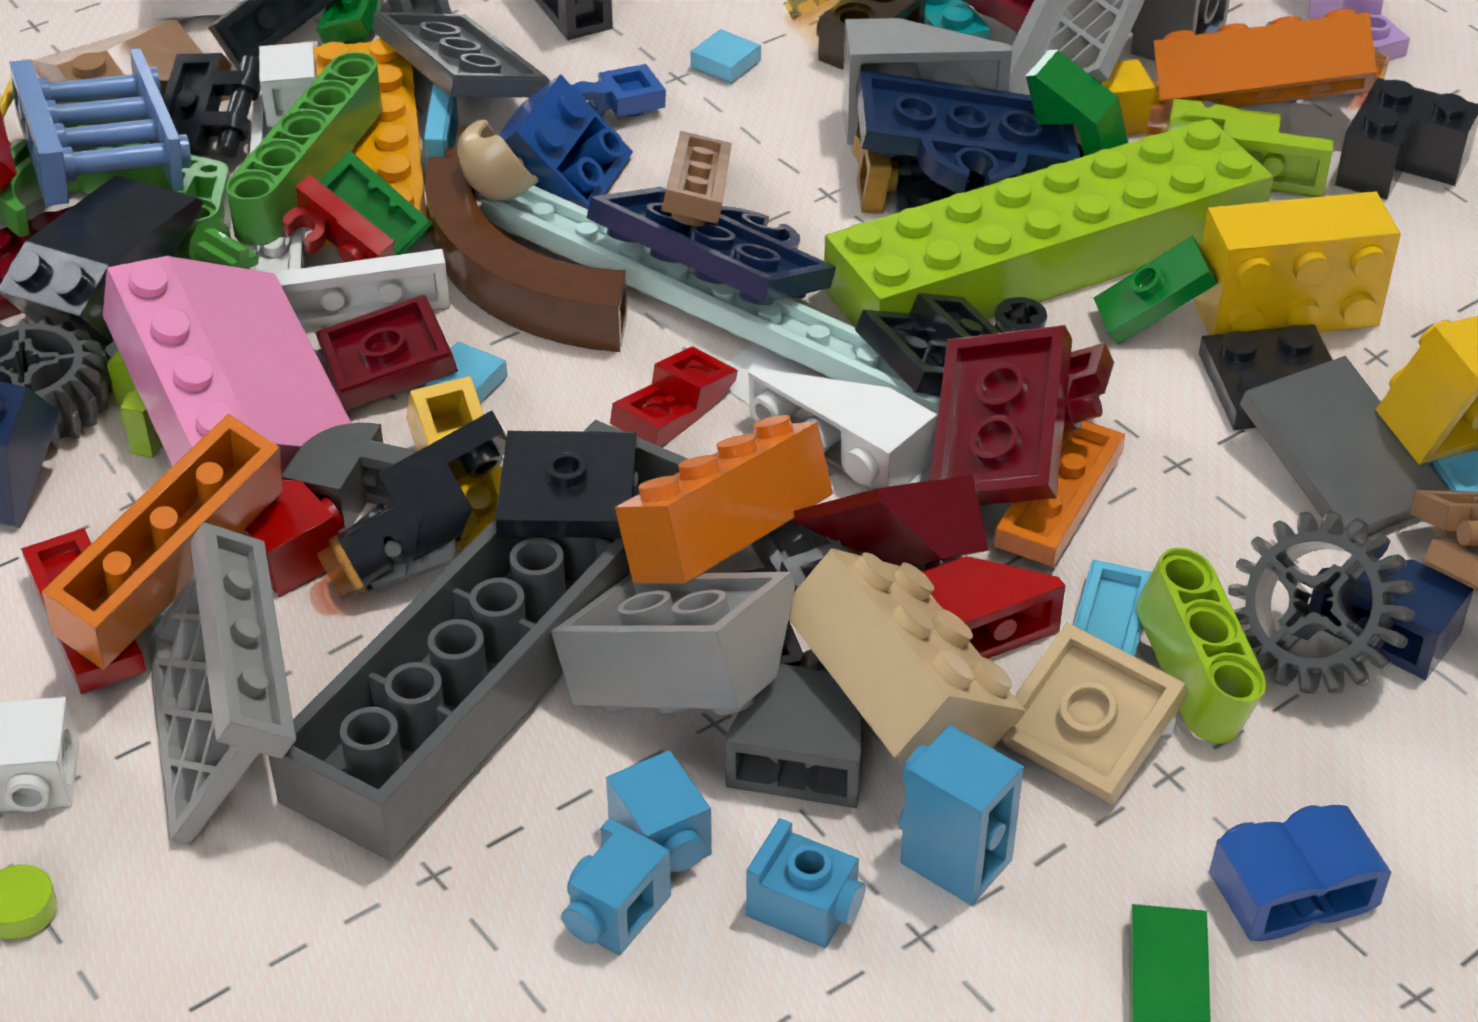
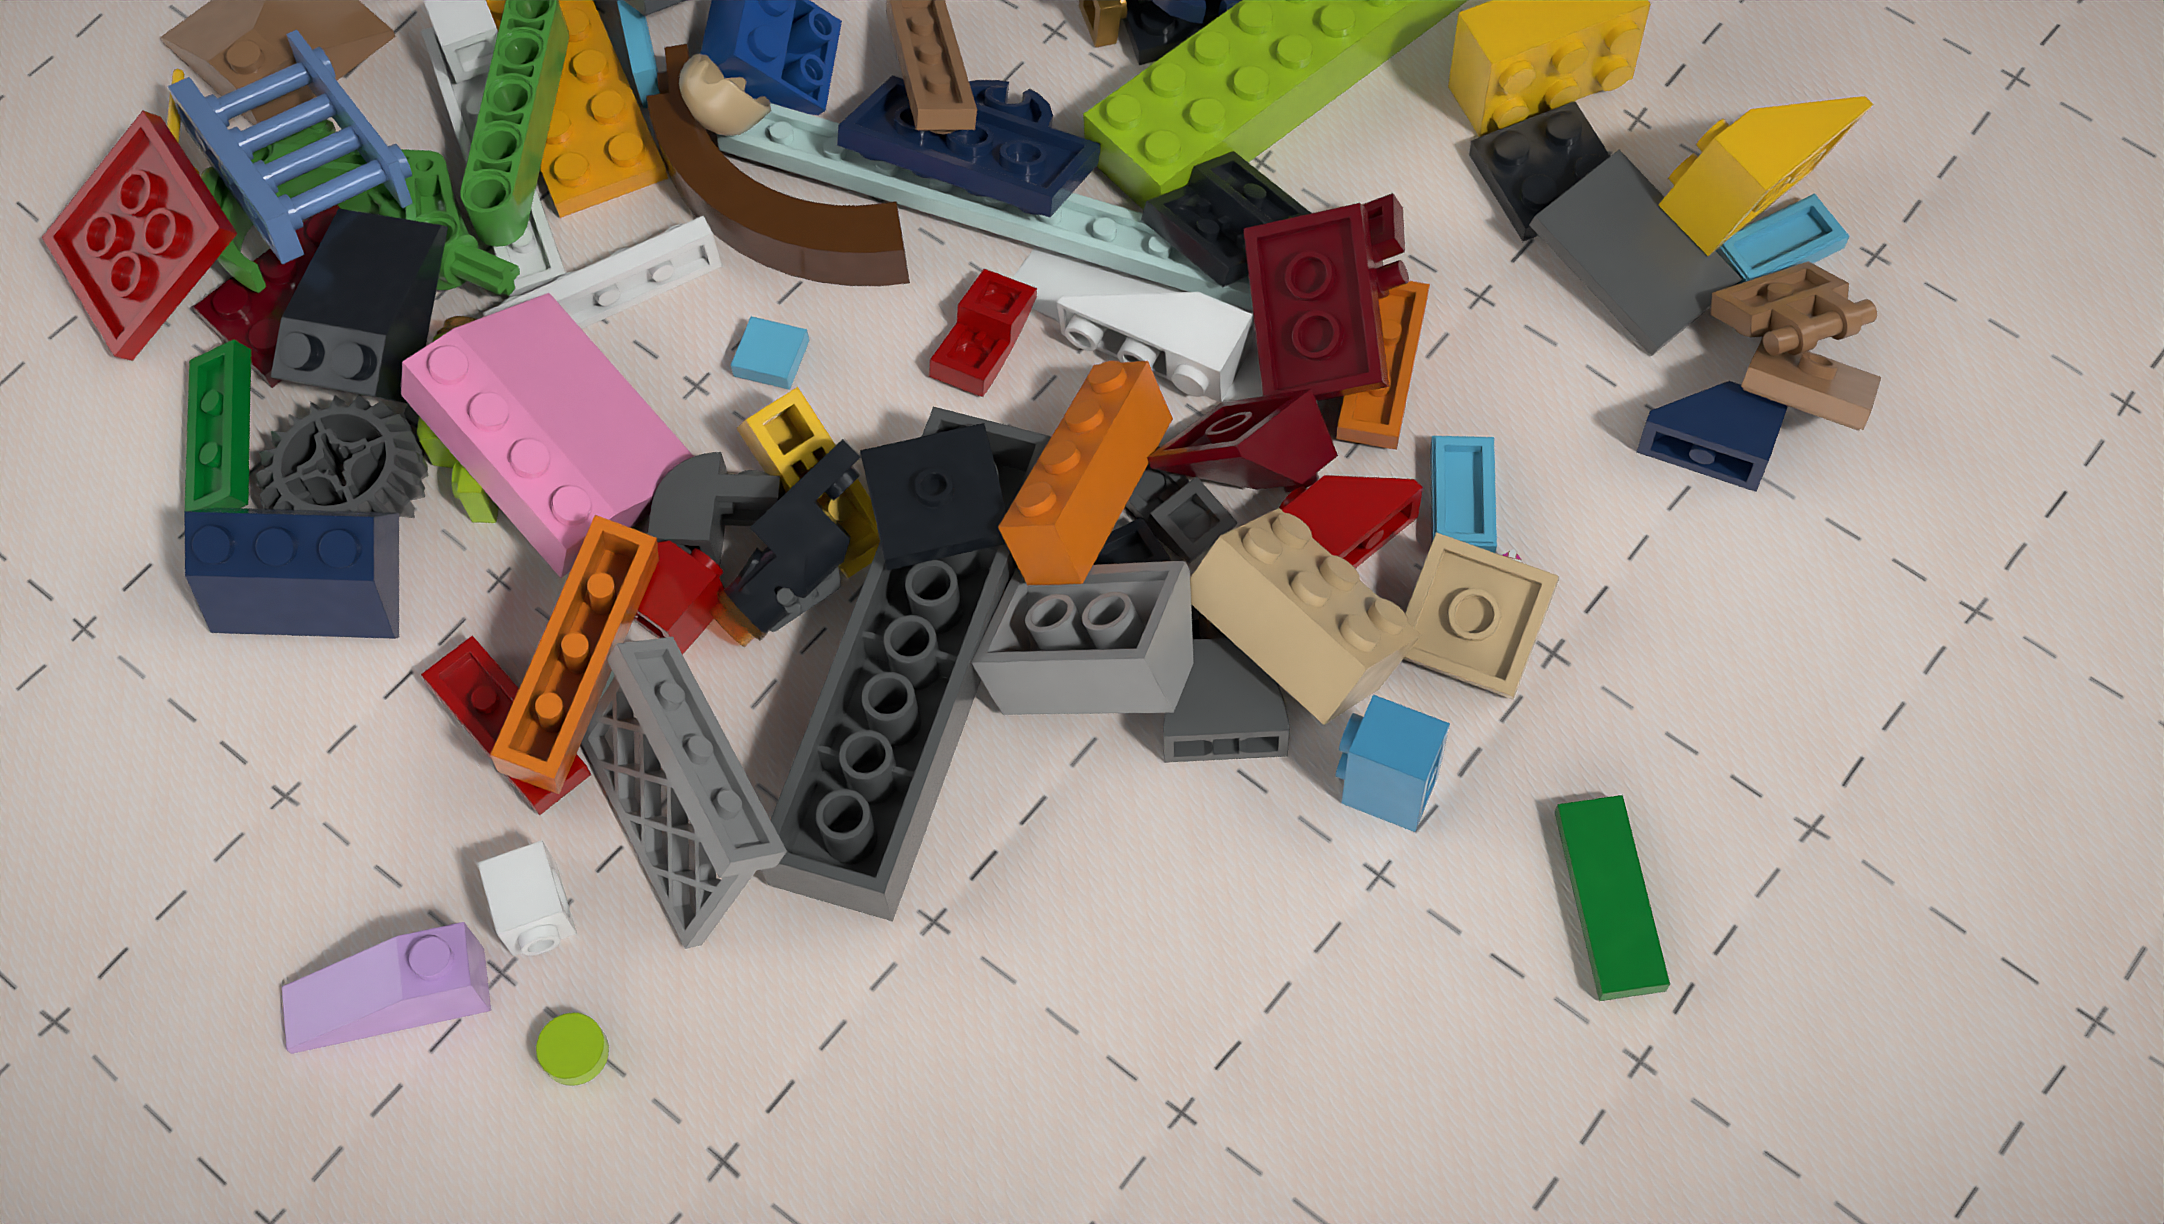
camera: 10 degrees left, 20 degrees up
(196, 94) = (366, 65): black plate -> none
(336, 222) = (611, 220): red plate -> none
(377, 202) = (609, 174): green plate -> none
(386, 352) = (684, 347): dark red plate -> none
(617, 888) = (1107, 904): dark azure brick -> none
(664, 807) = (1123, 820): dark azure brick -> none
(802, 886) = (1257, 876): dark azure brick -> none
(1019, 314) = (1295, 147): black bush -> none
(1155, 290) = (1417, 100): green plate -> none
(1201, 644) = (1562, 545): lime beam -> none
(1297, 623) = (1680, 473): dark grey gear -> none
(1298, 871) = (1692, 735): blue brick -> none

